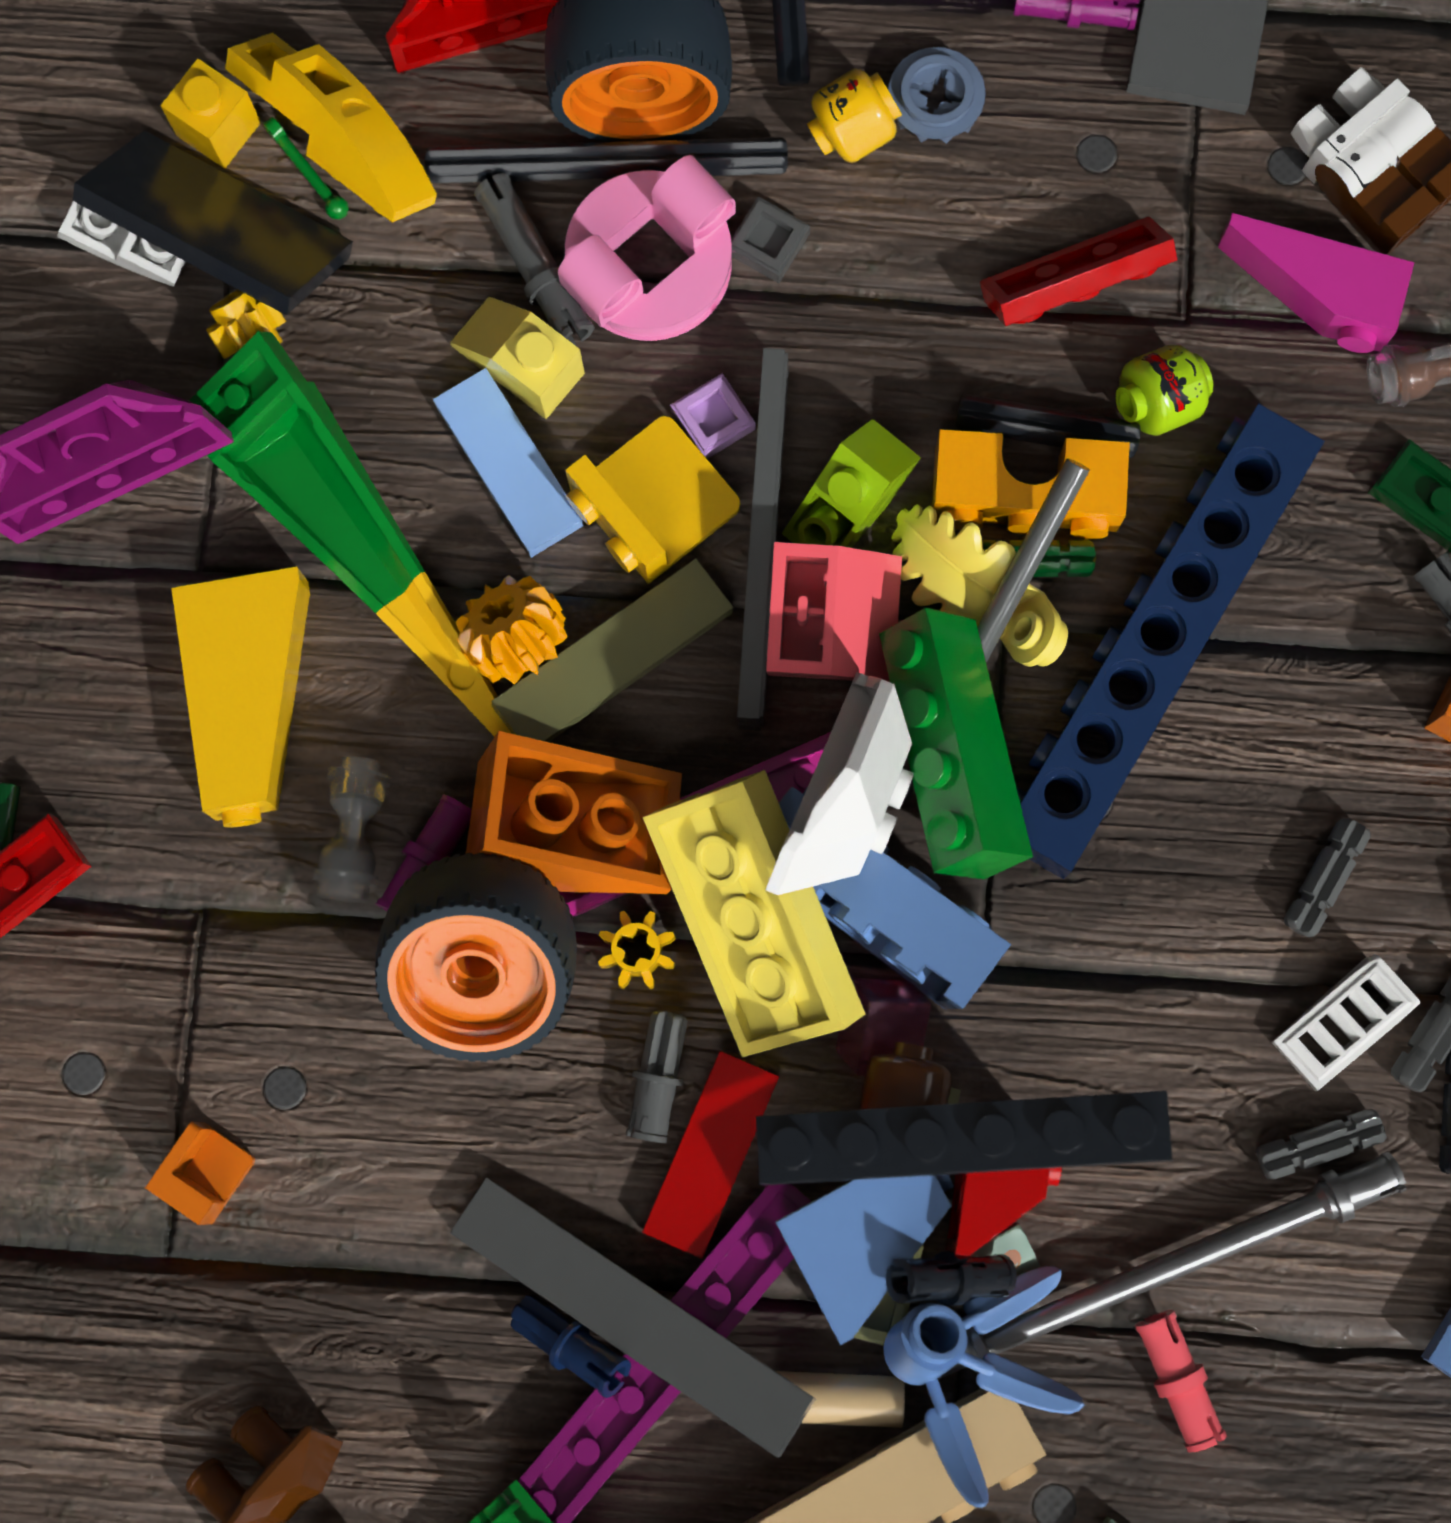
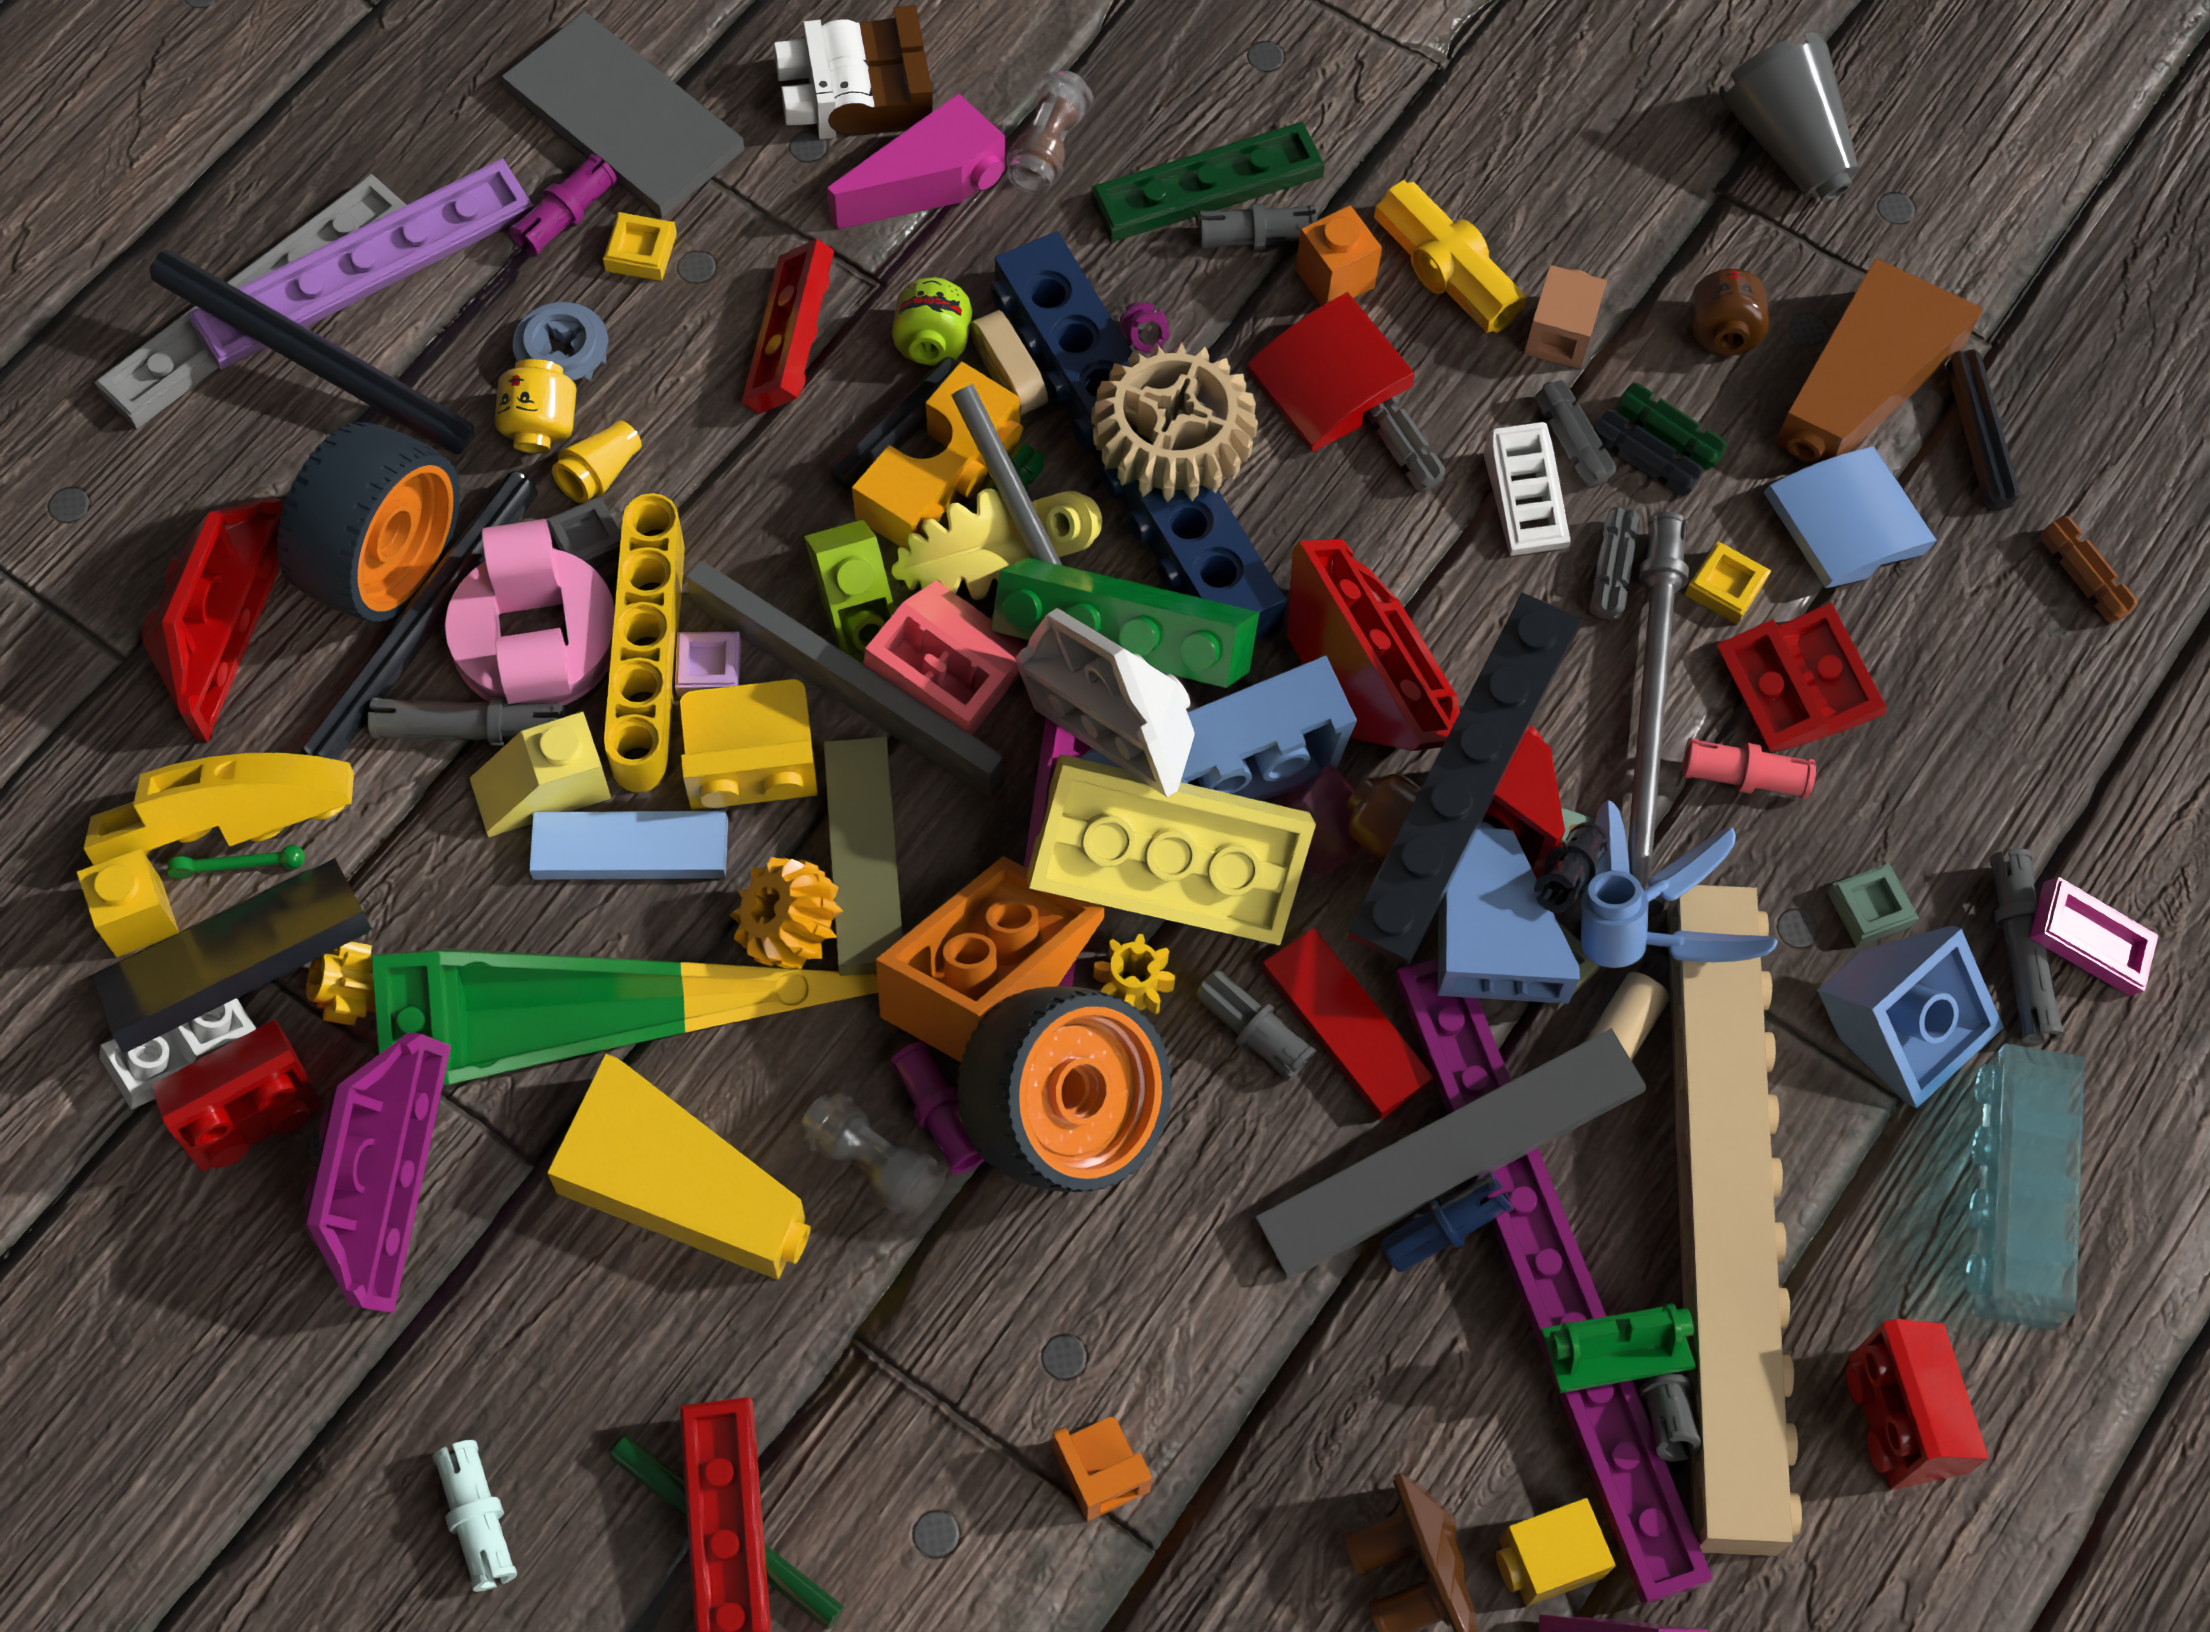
camera: 65 degrees left, 15 degrees down
(100, 306) = (237, 1097): none -> red slope
(706, 326) = (649, 666): none -> yellow beam
(839, 200) = (594, 463): none -> yellow cone
(1070, 978) = (1372, 646): none -> red wedge
(1081, 93) = (640, 246): none -> yellow tile
(1168, 481) = (1008, 360): none -> tan beam
(1230, 656) = (1196, 444): none -> tan gear
(1273, 580) = (1140, 313): none -> magenta pin
(1310, 1381) = (1801, 679): none -> red slope
(1351, 771) = (1330, 371): none -> red slope
(1371, 1260) = (1727, 582): none -> yellow tile

